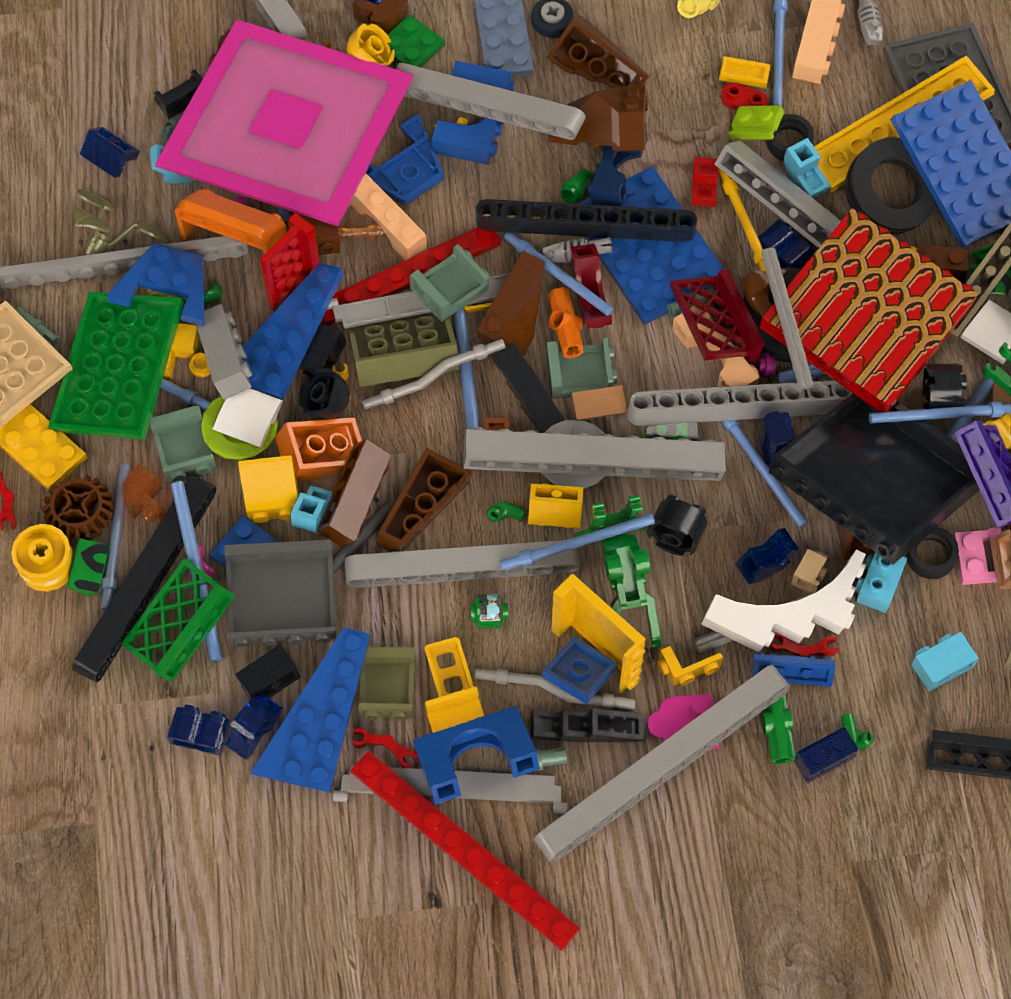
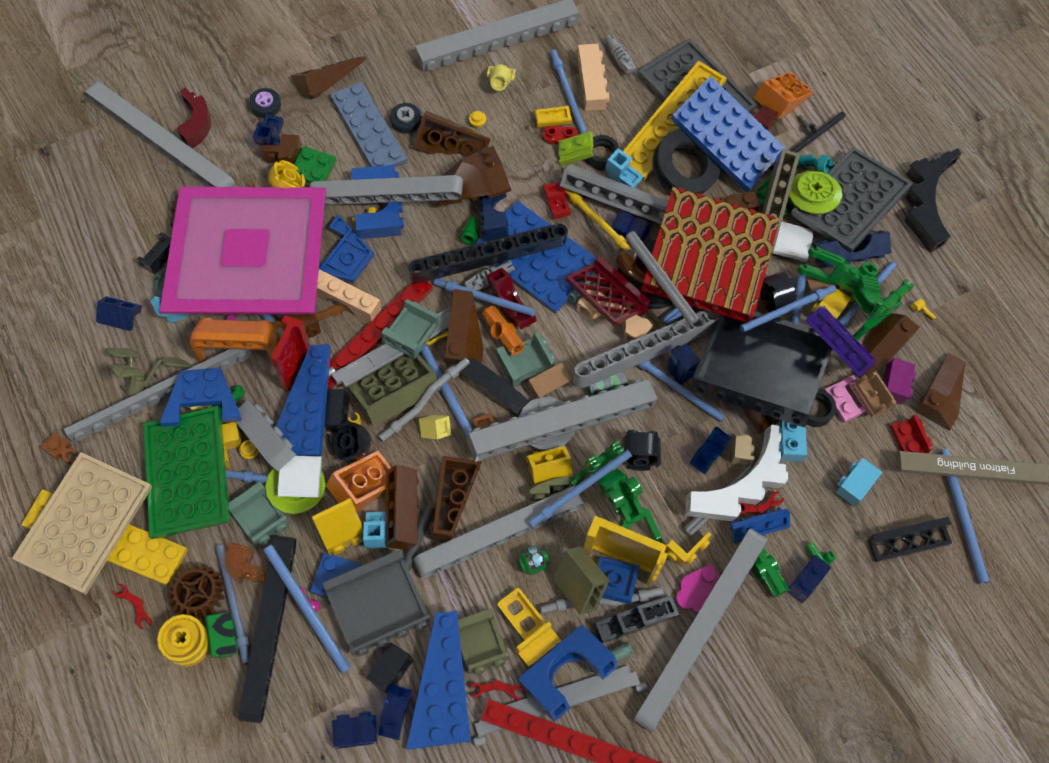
camera: 25 degrees left, 0 degrees up
(39, 326) = (112, 461): sand green pin -> none
(189, 636) = (321, 661): green fence -> none
(434, 412) = (435, 426): none -> light yellow panel
(504, 510) = (514, 480): green arm -> none
(534, 651) = (580, 580): none -> olive brick
(543, 530) = (543, 489): none -> olive slope
(644, 46) = (477, 119): none -> yellow plate
(766, 365) = (652, 314): magenta plate -> none

